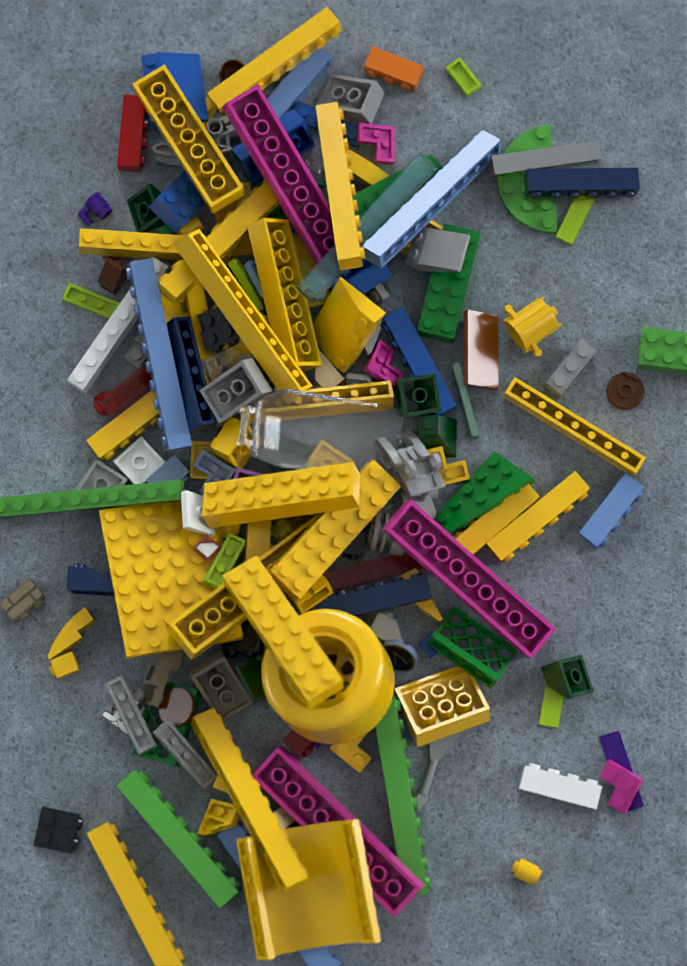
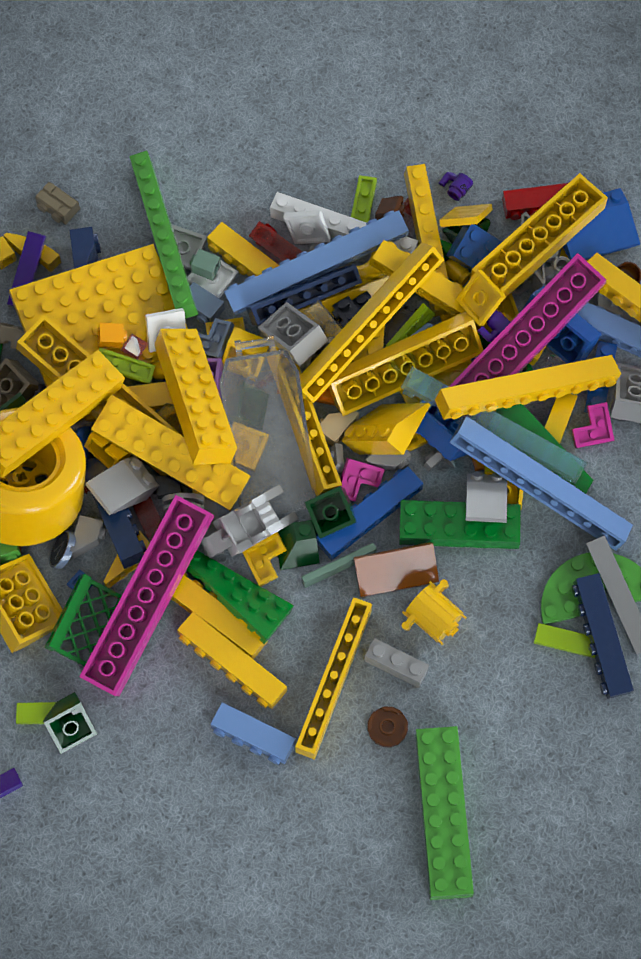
camera: 75 degrees right, 10 degrees down
(93, 641) = (28, 261): none -> dark purple slope
(114, 357) = (307, 227): none -> white plate
(130, 464) = (205, 264): none -> sand green brick
(141, 203) = (465, 215): none -> yellow tile
(194, 567) = (111, 335): none -> light orange brick
(242, 206) = (480, 297): none -> yellow plate
(266, 198) = (497, 323): none -> dark purple piece
(354, 583) = (122, 485): none -> light grey slope

